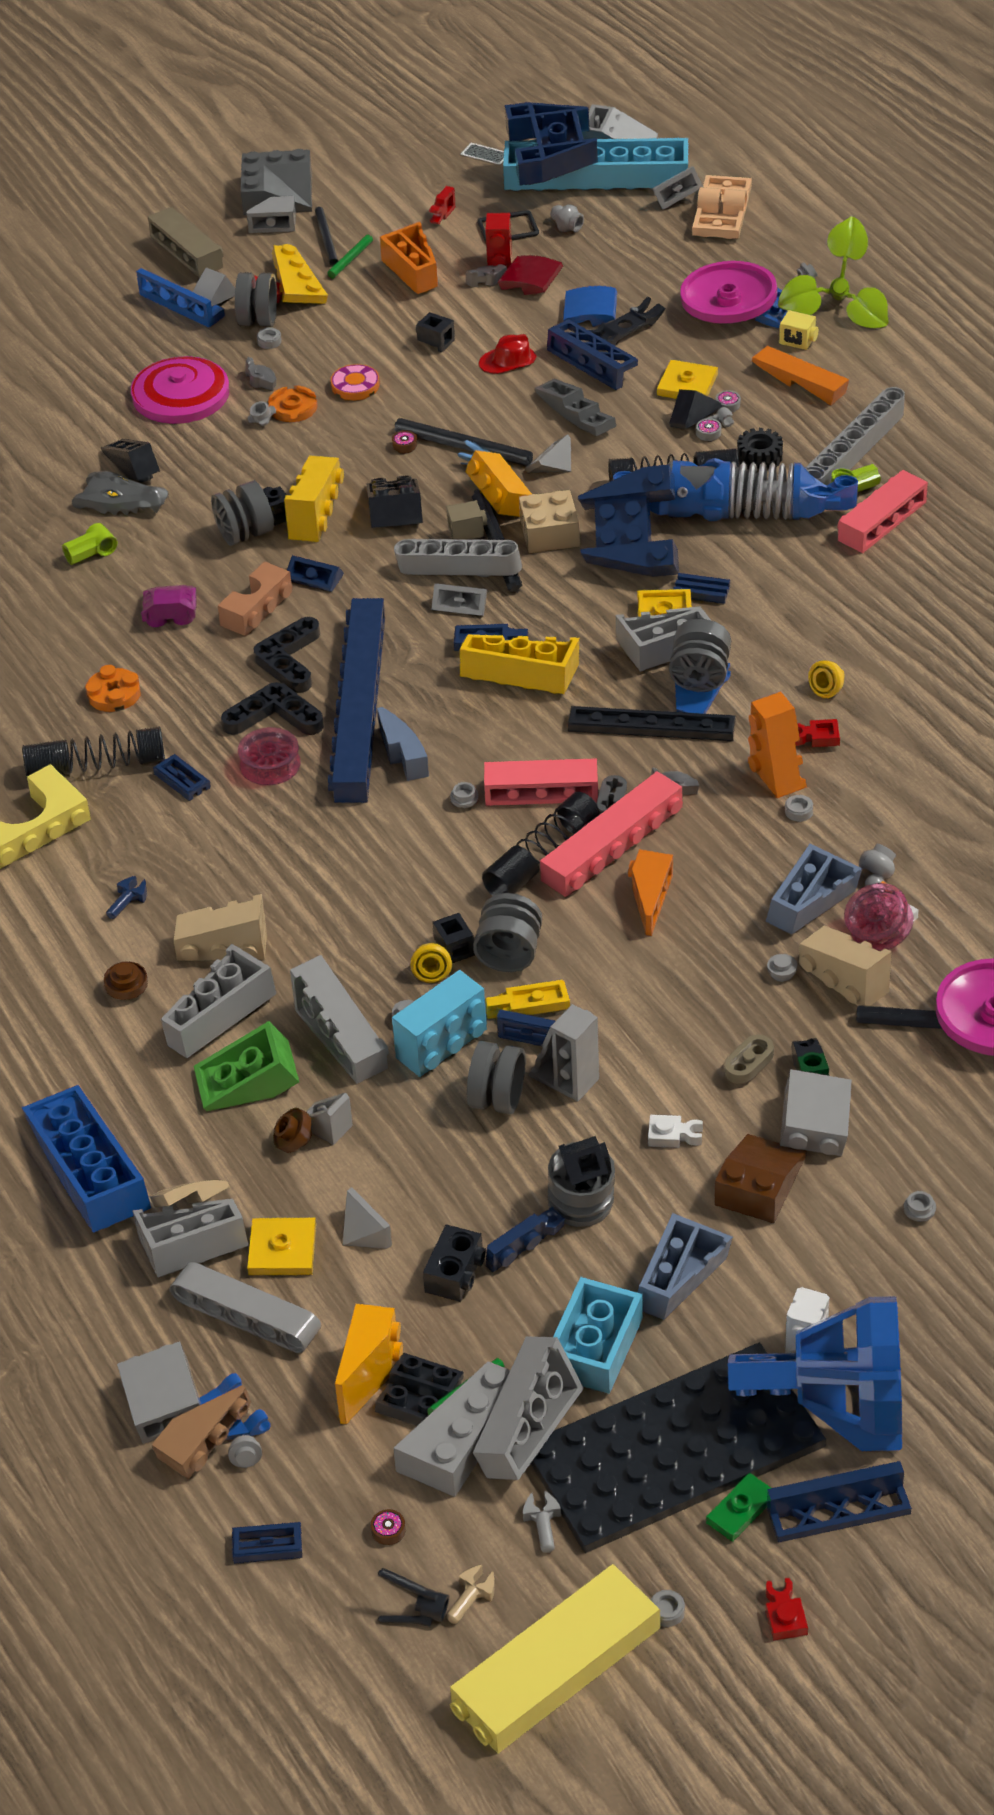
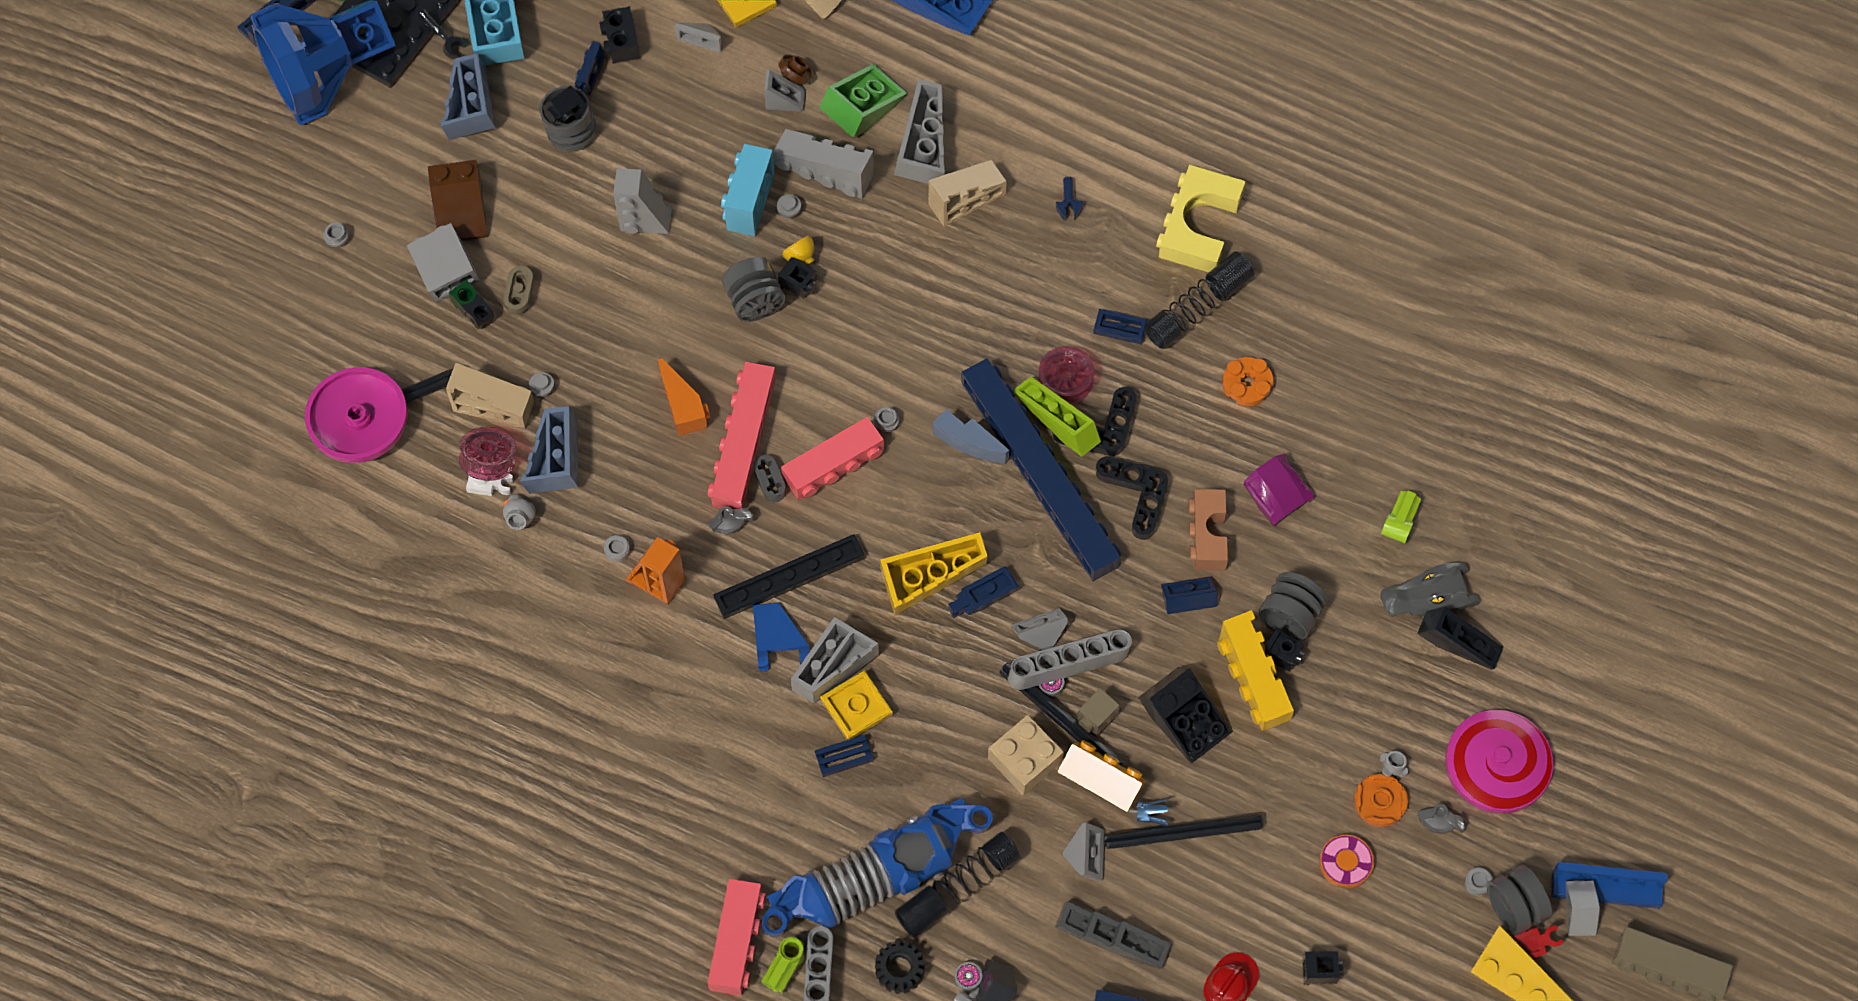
camera: 145 degrees right, 20 degrees up
(125, 980) = (1006, 126): reddish brown plate -> none
(309, 716) = (1059, 416): none -> lime slope
(404, 441) = (1237, 803): tile -> none
(496, 1077) = (683, 164): dark grey wheel -> none
(519, 865) = (793, 364): black piece -> none
(522, 1027) = (690, 230): dark blue tile -> none
(530, 999) = (706, 258): yellow hinge -> none
(625, 523) = (940, 759): dark blue wedge -> none
(660, 1356) = (438, 30): none -> black piece
(669, 1131) = (542, 208): white plate -> none
(700, 655) = (777, 633): dark grey wheel -> none
(806, 1309) = (357, 92): white brick -> none
(820, 733) = (641, 632): red plate -> none
(826, 678) = (667, 696): yellow brick -> none

